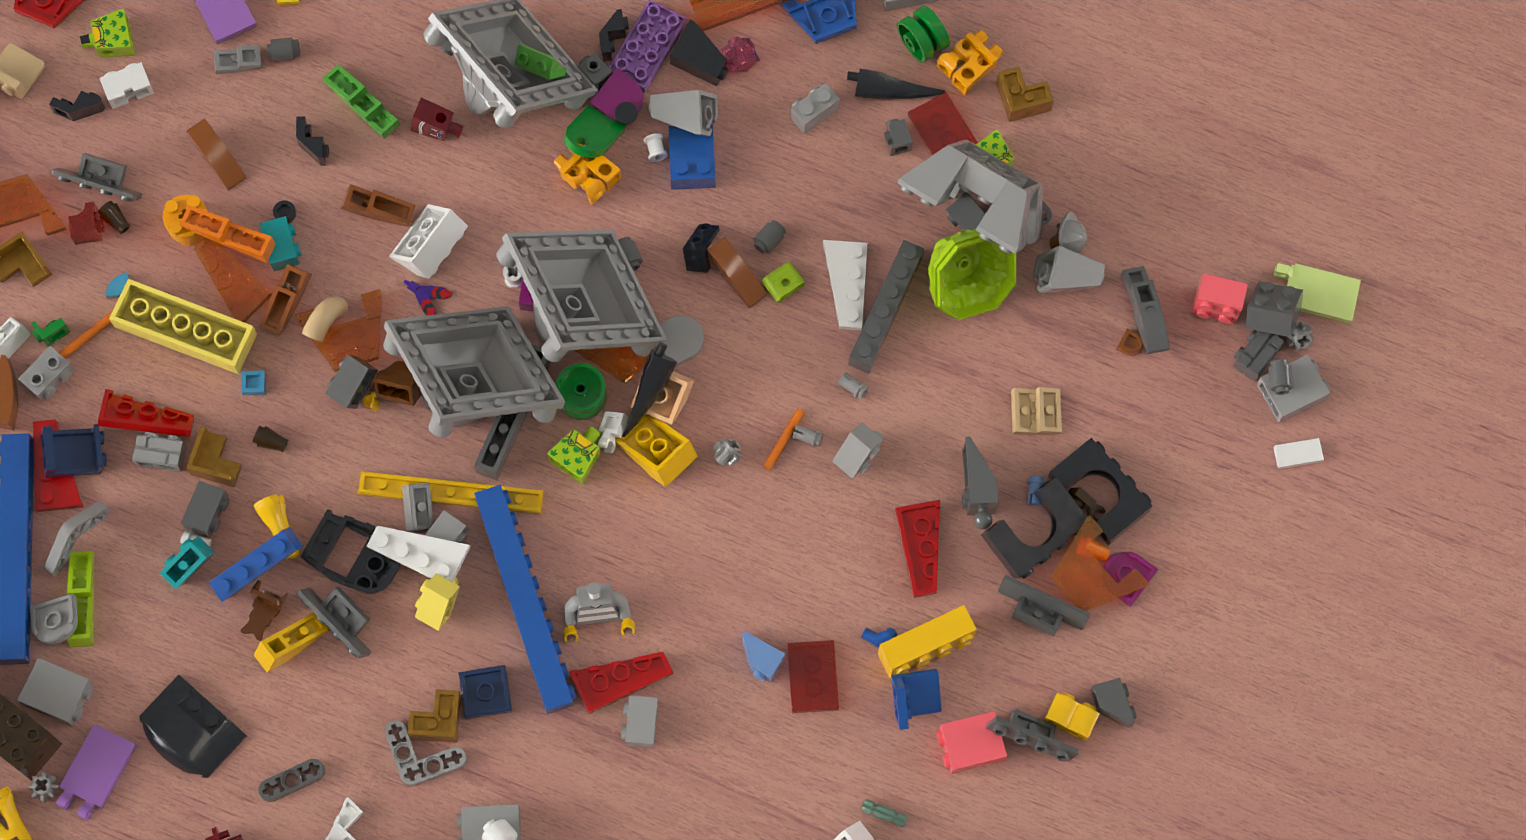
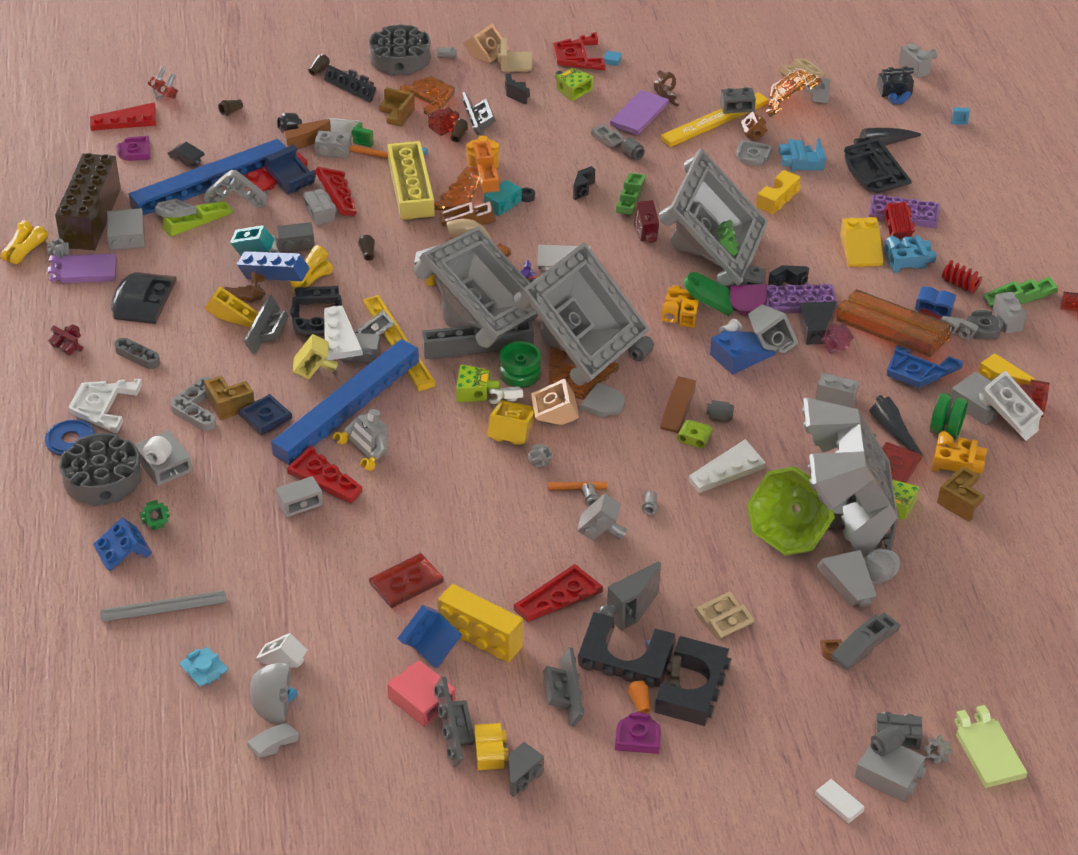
camera: 60 degrees right, 30 degrees down
(126, 84) = (547, 100): white brick -> none
(207, 461) = (332, 226): pearl gold panel -> none
(216, 154) = (537, 149): dark orange slope -> none
(253, 382) = (400, 228): dark azure tile -> none
(377, 206) = (566, 225): dark orange slope -> none
(626, 113) = (739, 303): black tile -> none
(653, 379) = (555, 382): black piece -> none
(696, 248) = (669, 377): black bracket -> none
(762, 658) = (397, 541): medium blue slope -> none
(884, 813) = (326, 668): sand green axle -> none
(886, 306) = (711, 492): dark grey brick -> none
(1085, 578) = (612, 697): clear orange wing -> none
(1219, 299) = (917, 677): coral brick -> none
(1274, 308) = (941, 713): dark grey brick -> none

